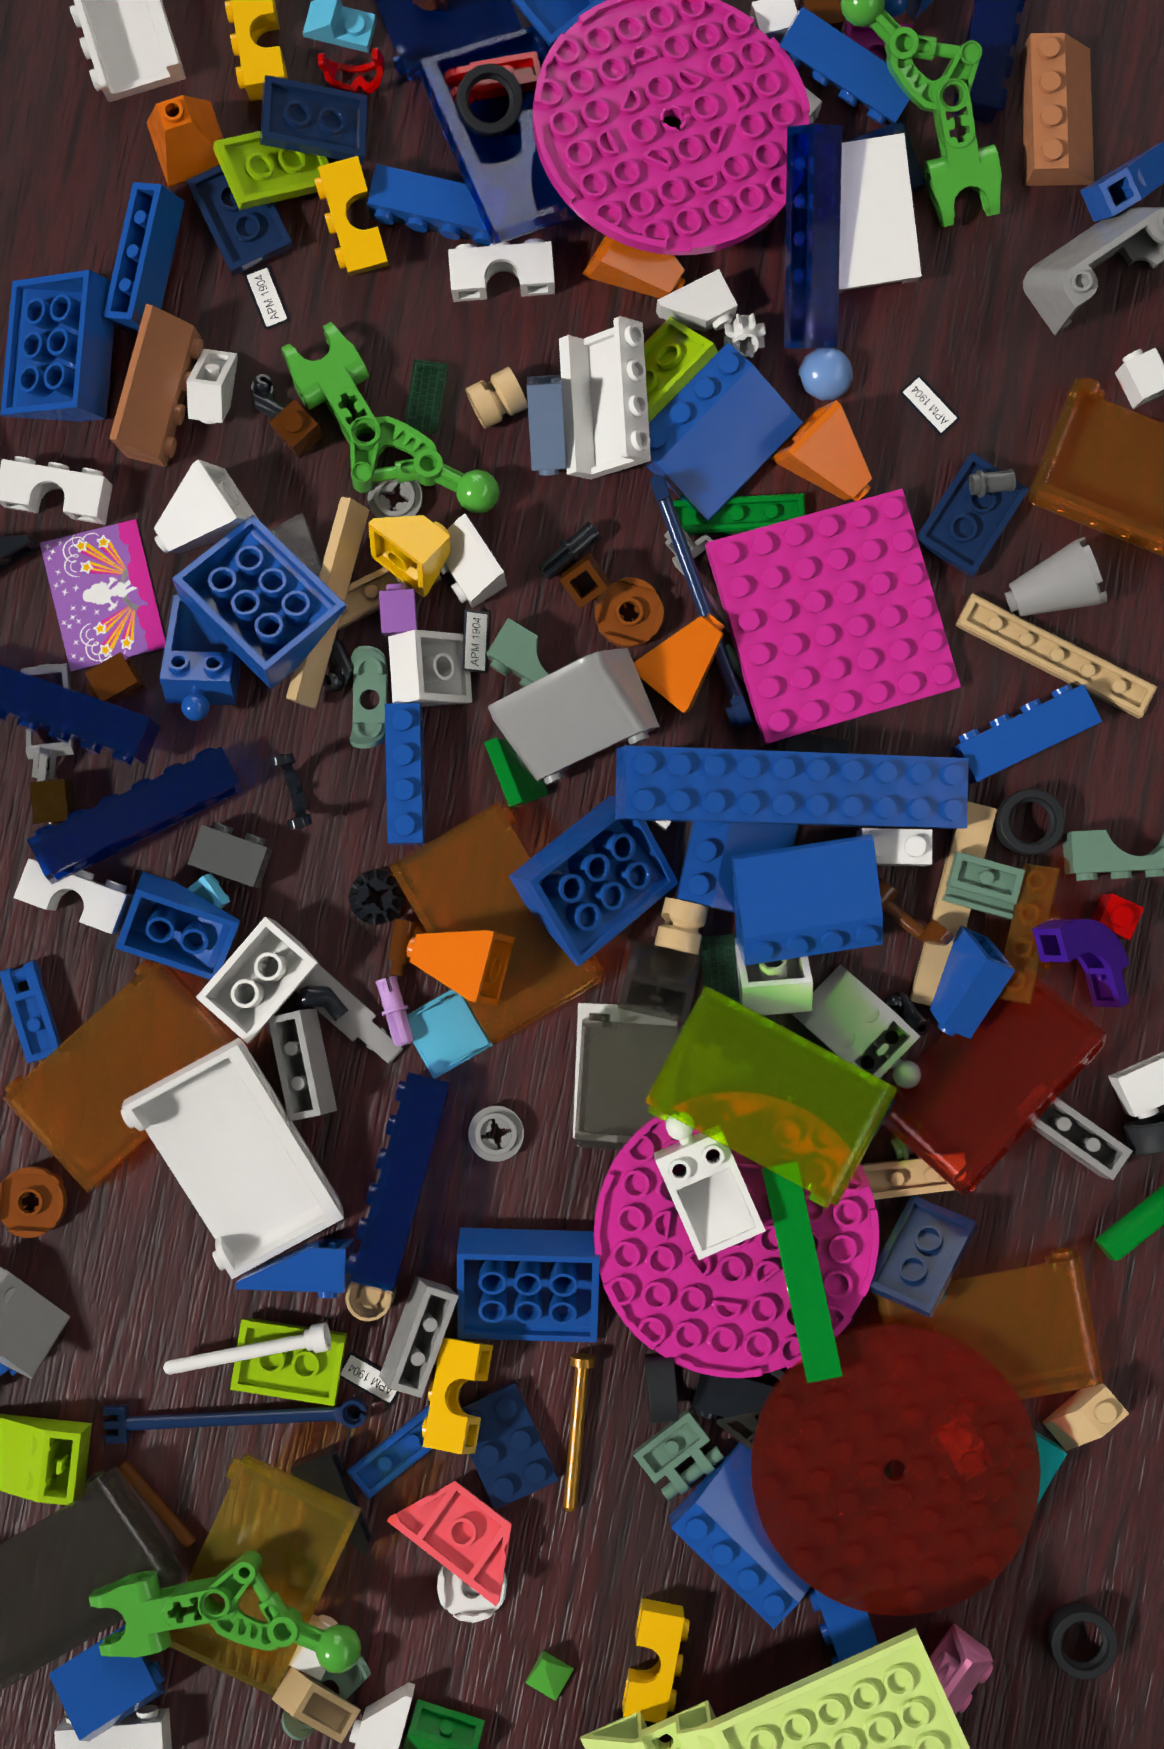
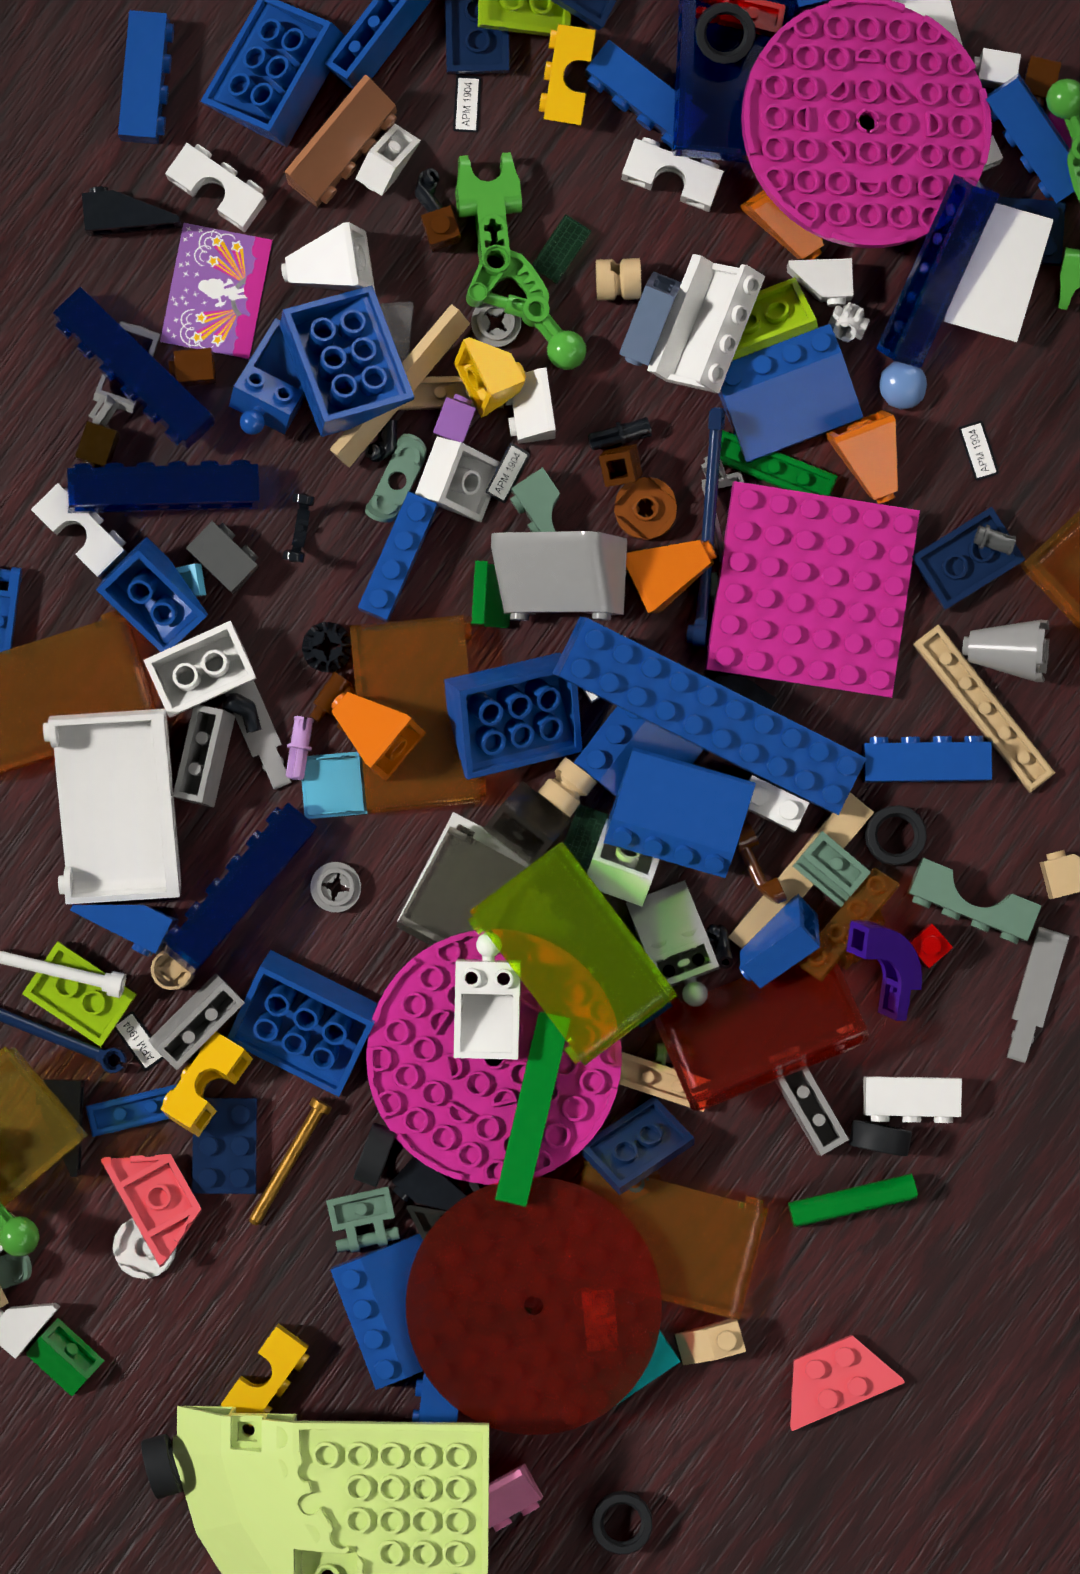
camera: 20 degrees right, 0 degrees up
(549, 1675) = (173, 1350): bright green slope -> none

